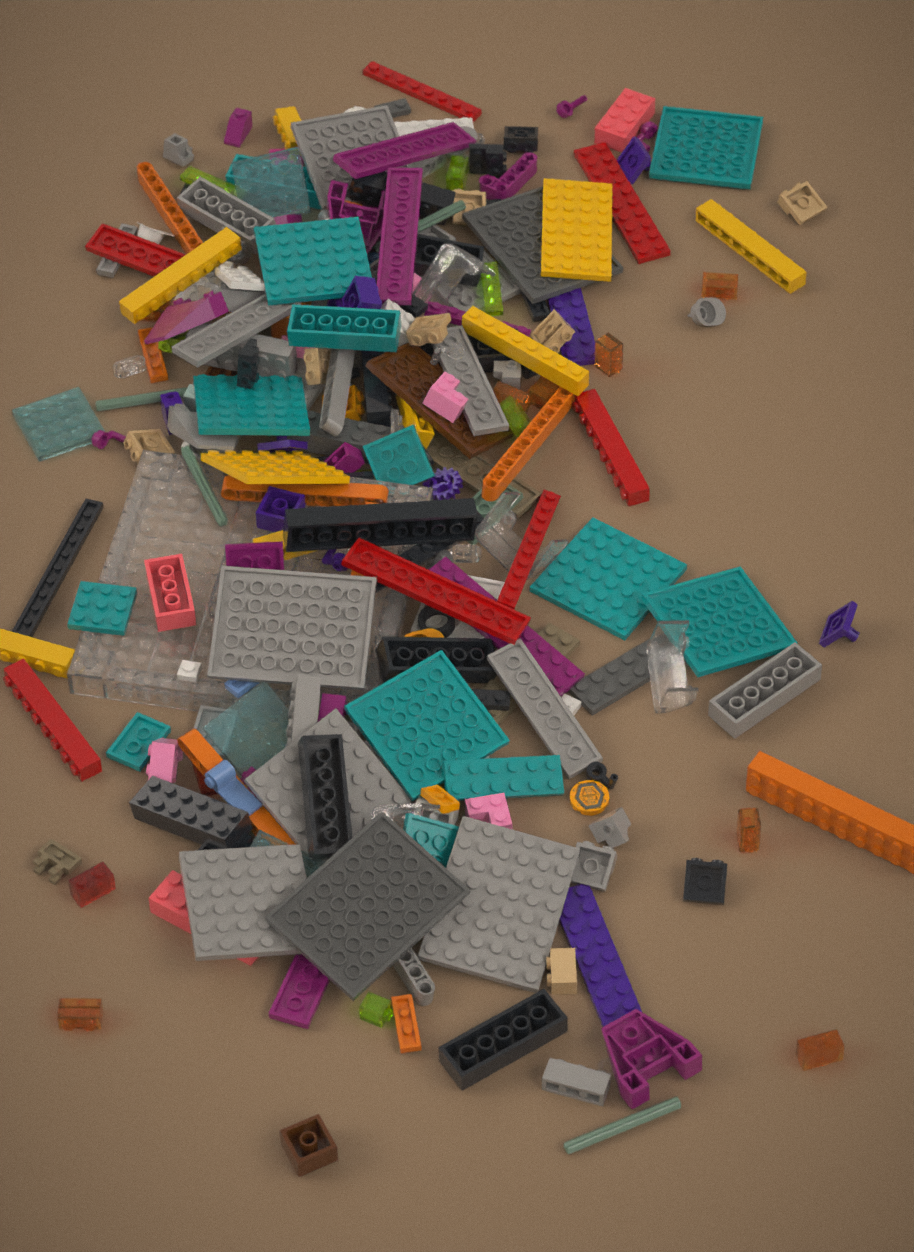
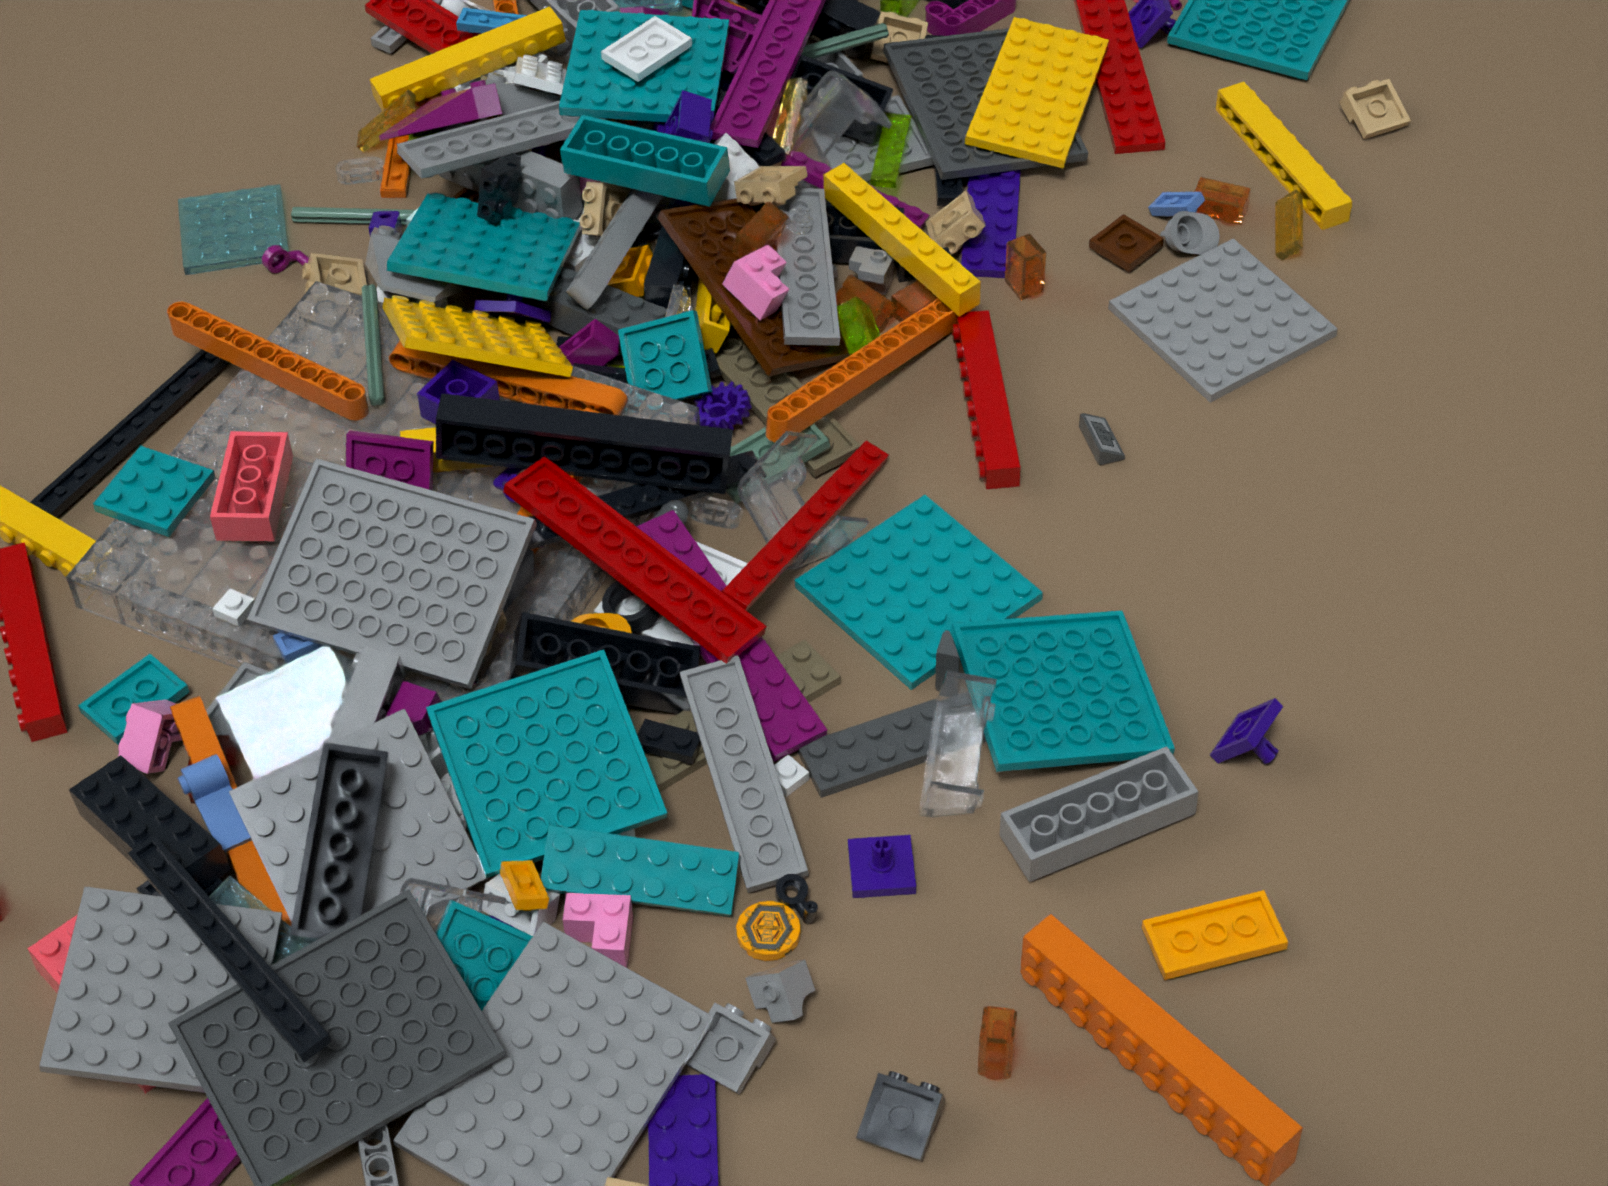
camera: 15 degrees right, 0 degrees up
(138, 328) = (394, 113): none -> clear yellow plate
(140, 509) = (268, 360): none -> orange beam
(181, 244) = (482, 20): none -> dark azure plate
(285, 865) = (230, 949): none -> black plate
(314, 248) = (646, 48): none -> white plate
(422, 276) = (789, 113): none -> clear yellow plate
(435, 364) = (760, 230): none -> clear orange brick
(643, 747) = (881, 866): none -> dark purple tile
(647, 619) = (946, 658): none -> dark grey slope
(666, 325) = (1126, 242): none -> reddish brown plate
(691, 460) = (1100, 439): none -> dark grey slope
(692, 293) = (1172, 202): none -> medium blue plate
(743, 366) = (1222, 319): none -> light grey plate
(769, 294) = (1289, 225): none -> clear yellow plate
(852, 746) = (1214, 935): none -> light orange plate

